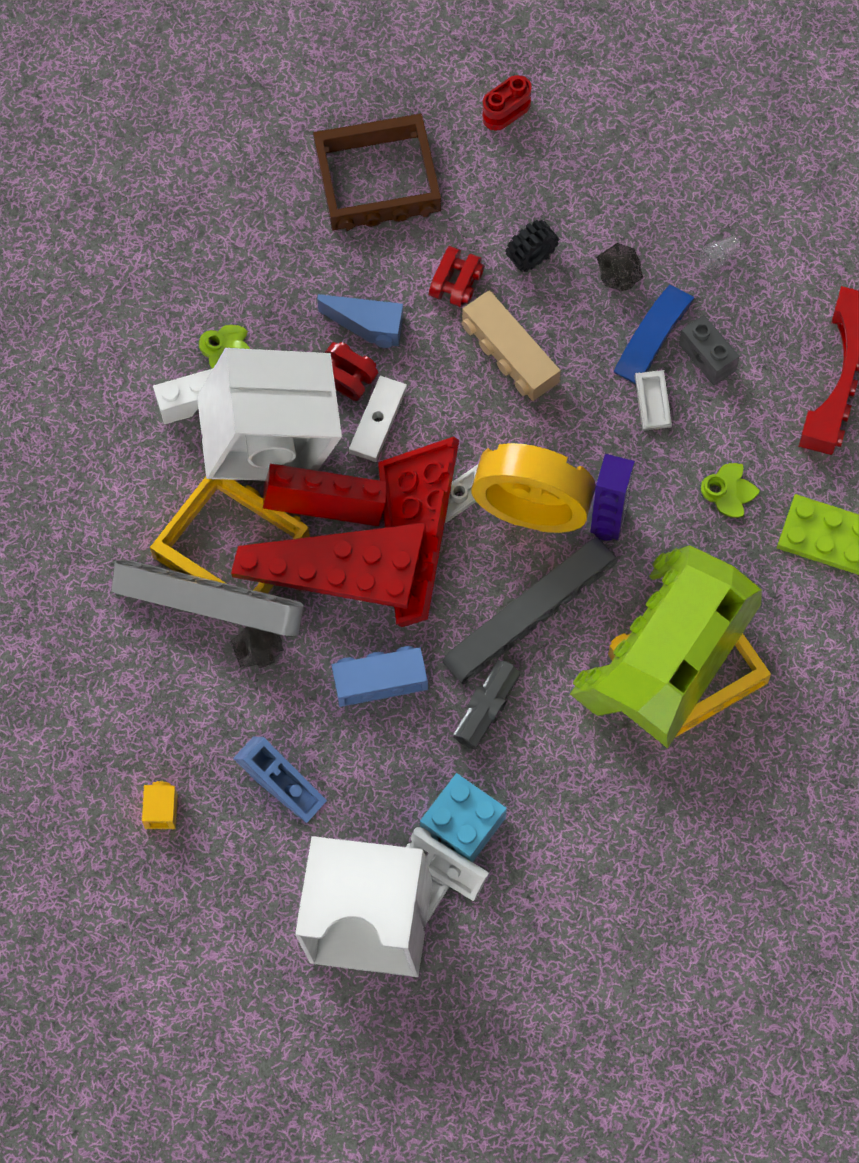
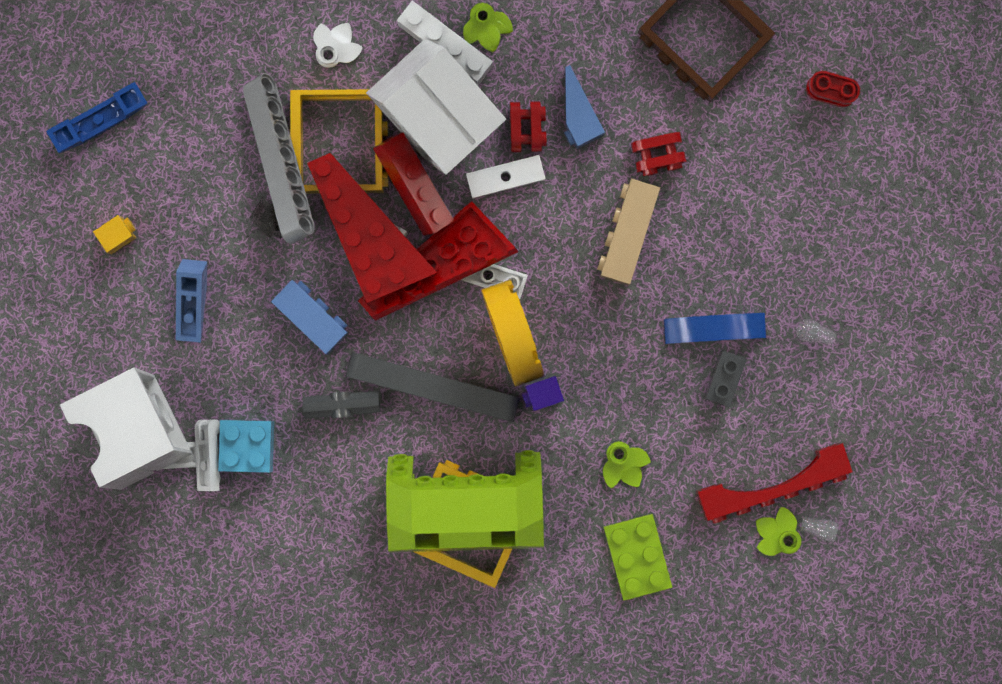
camera: 55 degrees right, 20 degrees up
(36, 746) = (97, 119): none -> blue slope
(138, 485) = (336, 41): none -> white plate
(532, 245) = (720, 193): black tyre -> none
(620, 267) = (748, 269): clear smoke brick -> none
(653, 400) = (657, 364): white tile -> none

